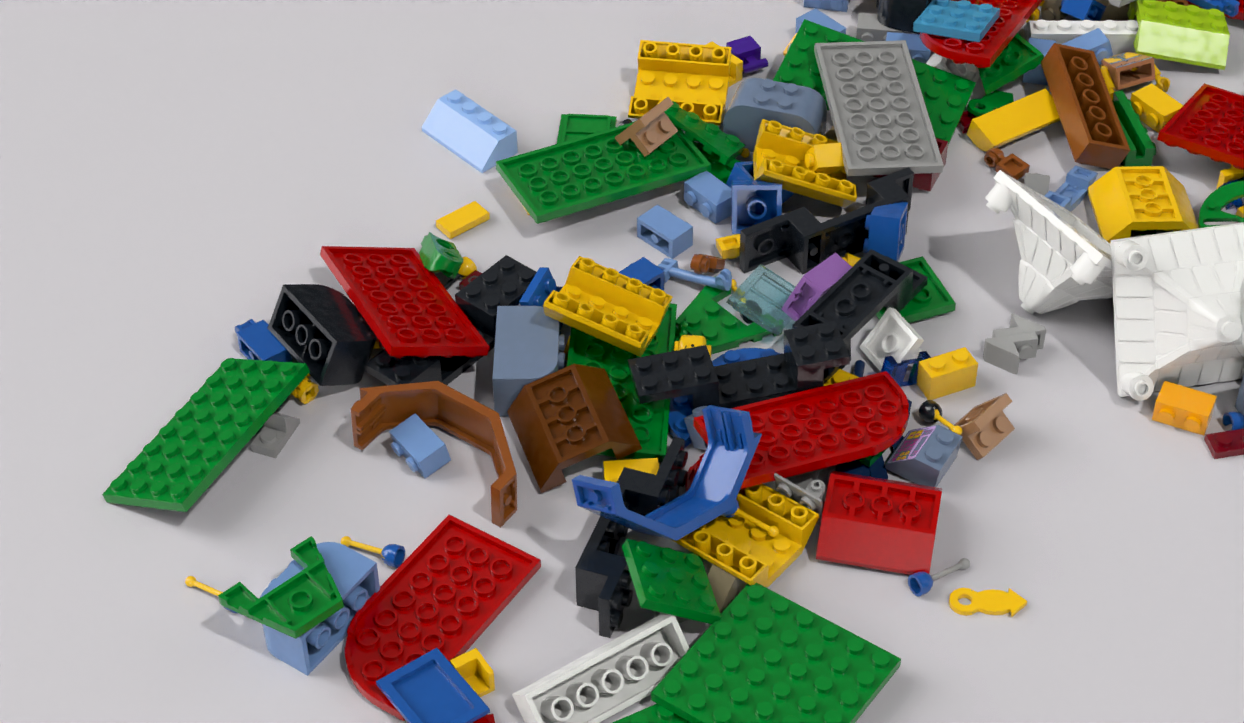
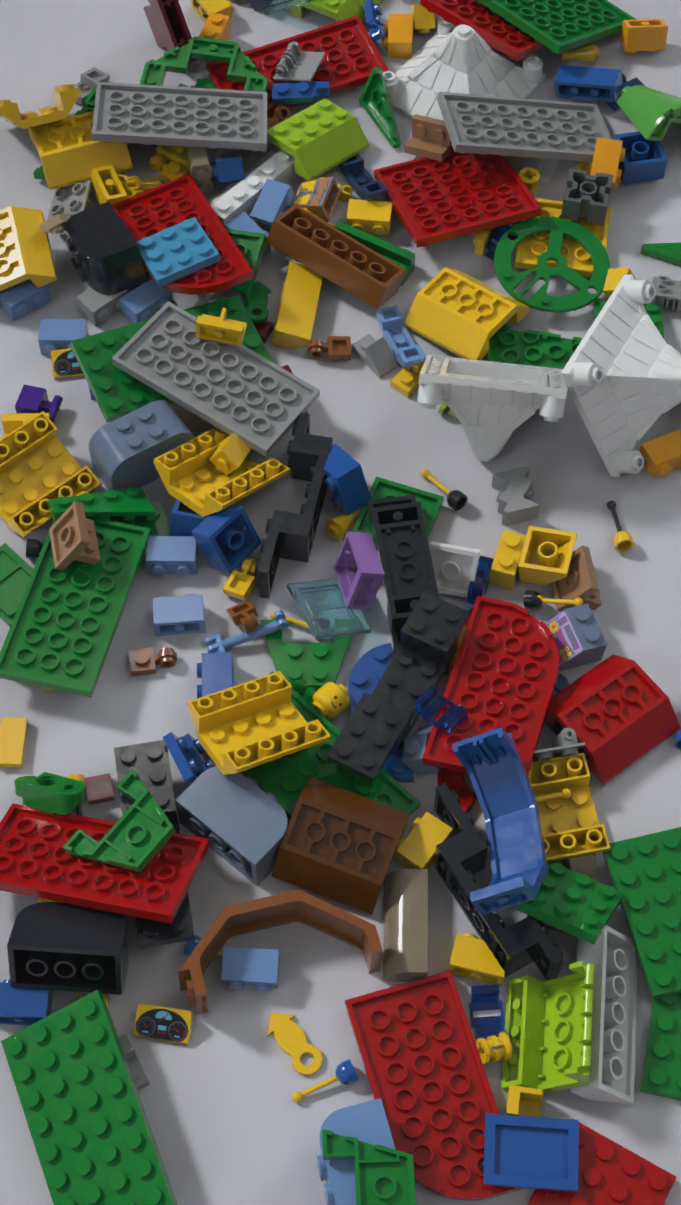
camera: 50 degrees left, 15 degrees up
(328, 432) = (163, 1023): none -> slope
(388, 513) = (294, 1043): none -> yellow brick
(444, 300) = (134, 836): none -> green wing
(500, 624) = (503, 1045): none -> yellow bush
(543, 601) = (486, 998): none -> clear blue piece
(544, 521) = (405, 925): none -> dark tan brick
(552, 644) = (550, 1030): none -> lime slope
(559, 566) = (474, 960): none -> yellow slope
(608, 241) = (144, 660): none -> dark orange plate
(748, 398) = (430, 703): none -> clear blue piece
(918, 77) = (220, 329): none -> yellow panel
(965, 313) = (455, 498): none -> black hinge
(974, 384) = (546, 555): none -> yellow slope
(1062, 433) = (622, 540): none -> yellow hinge
(1187, 82) = (360, 179): none -> dark blue slope

